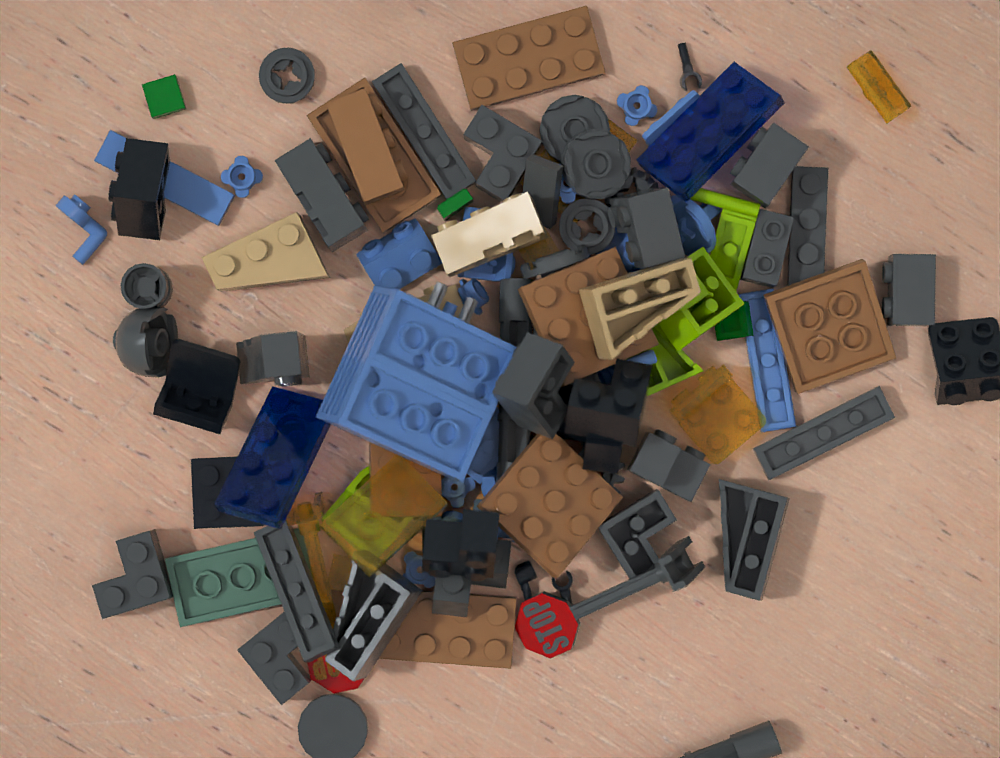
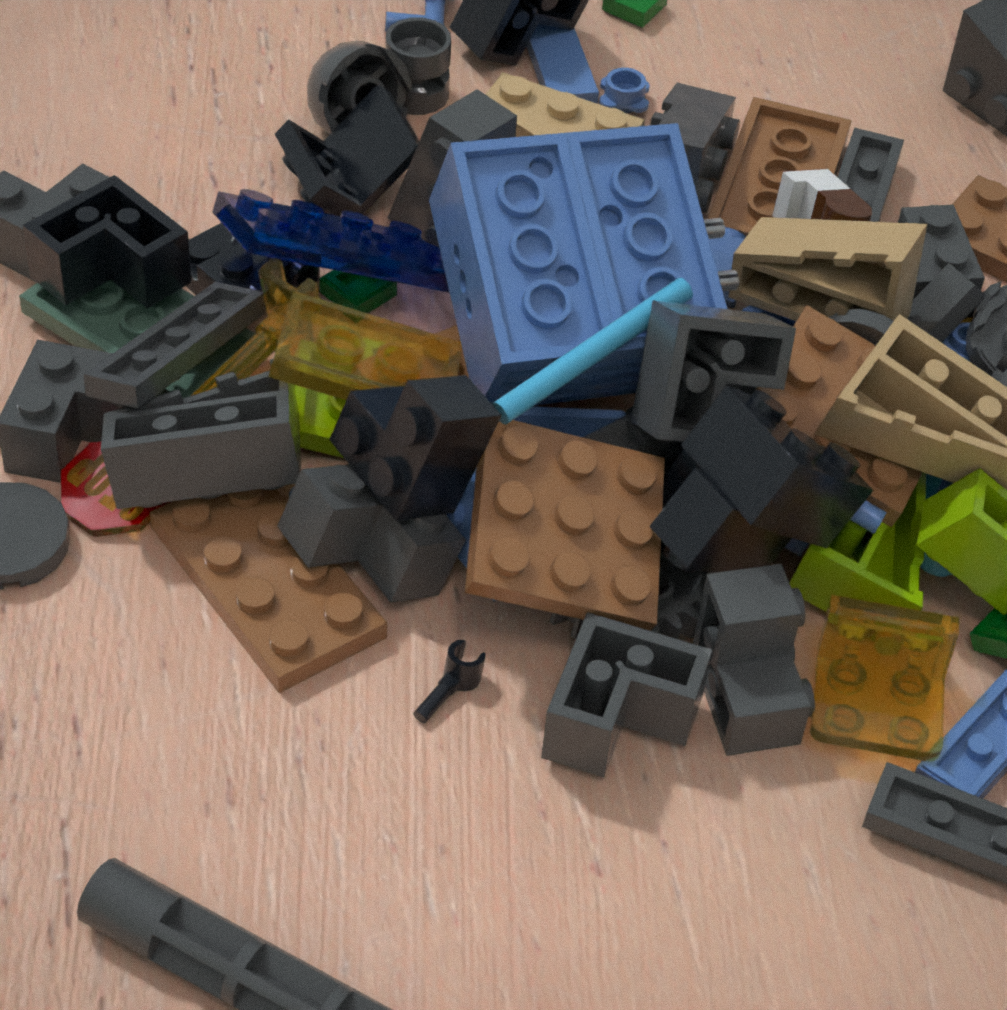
camera: 40 degrees right, 40 degrees down
(190, 568) = (107, 237): none -> black brick
(279, 61) = (786, 72): dark grey gear -> none
(367, 145) = (783, 136): medium nougat brick -> none
(440, 180) = (818, 196): none -> leg
(488, 430) = (587, 353): none -> medium azure bar
(524, 574) = (428, 614): black hand -> none
(552, 623) = (402, 674): dark grey piece -> none
(750, 536) = (764, 838): dark grey wedge -> none

